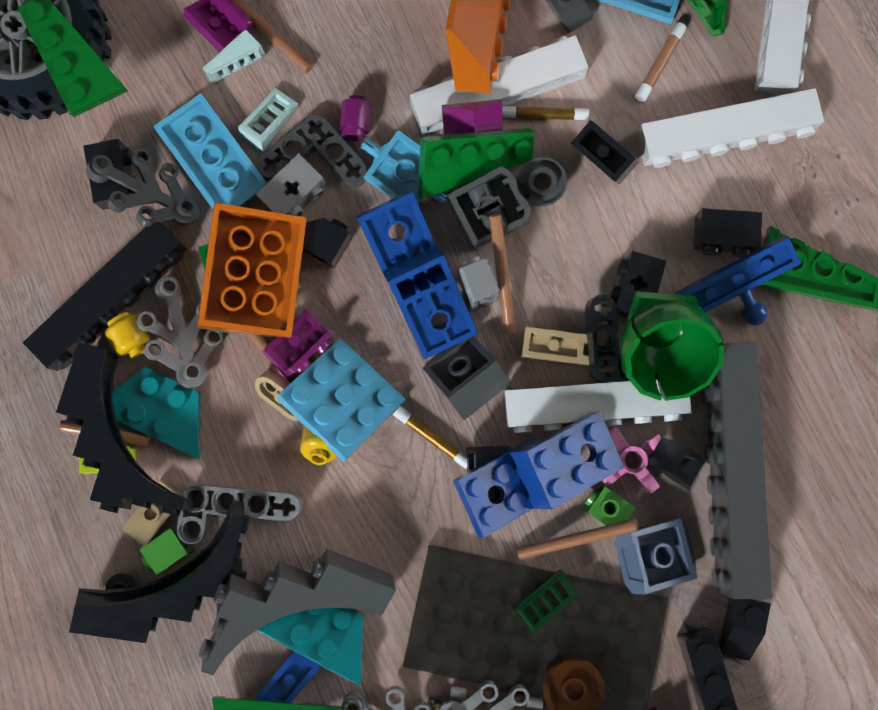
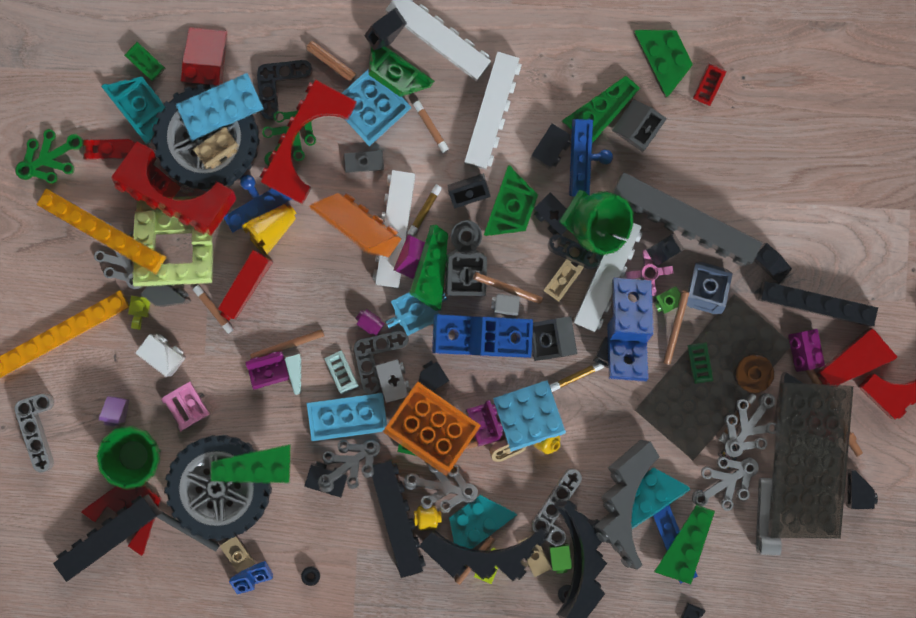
camera: 65 degrees left, 5 degrees up
(616, 223) = (512, 206): none -> green wing
(827, 336) = (639, 125): none -> dark grey slope

